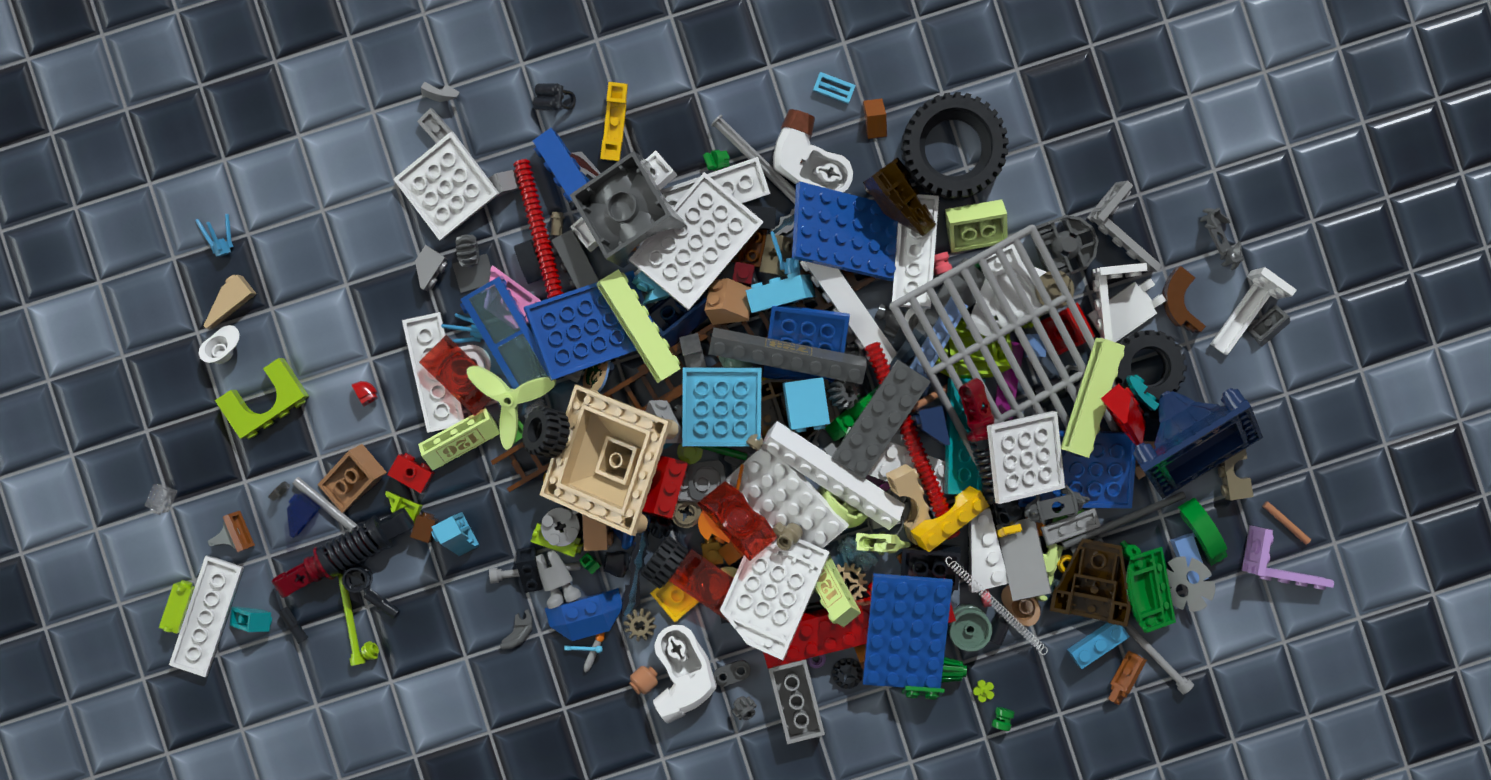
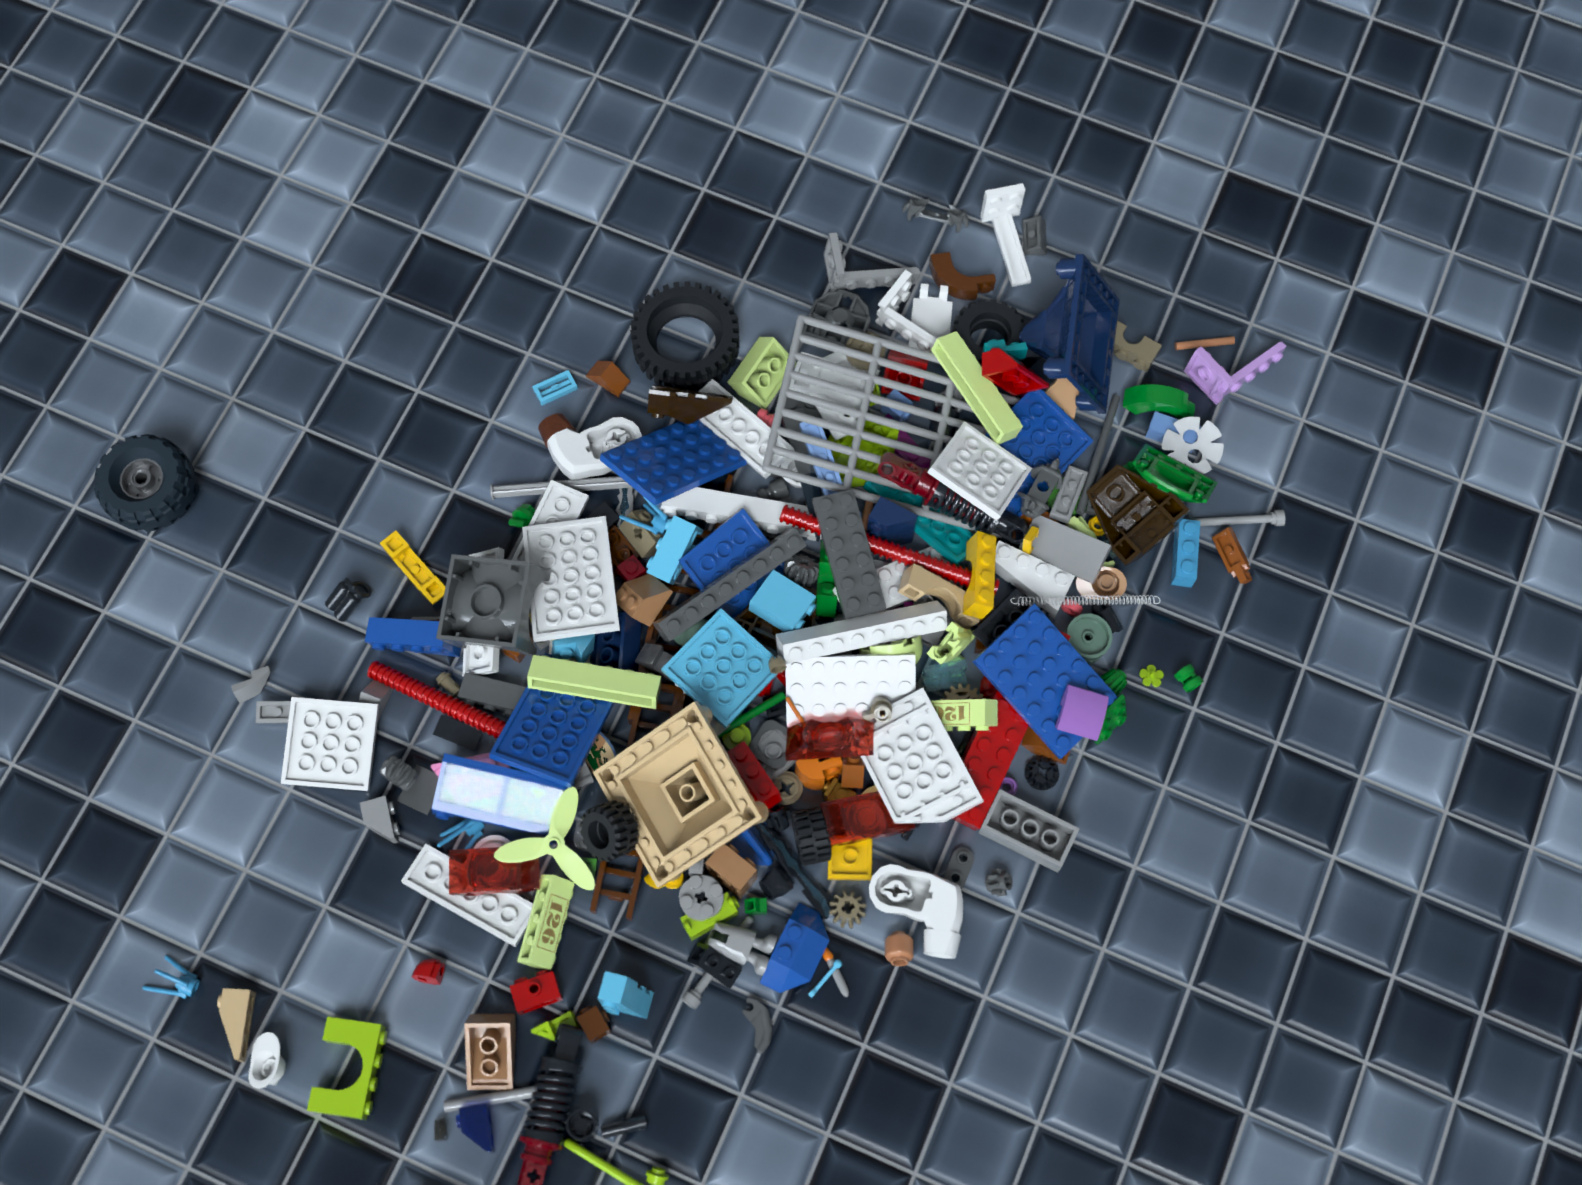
camera: 50 degrees left, 20 degrees down
(904, 675) = (1082, 712): none -> medium lavender slope

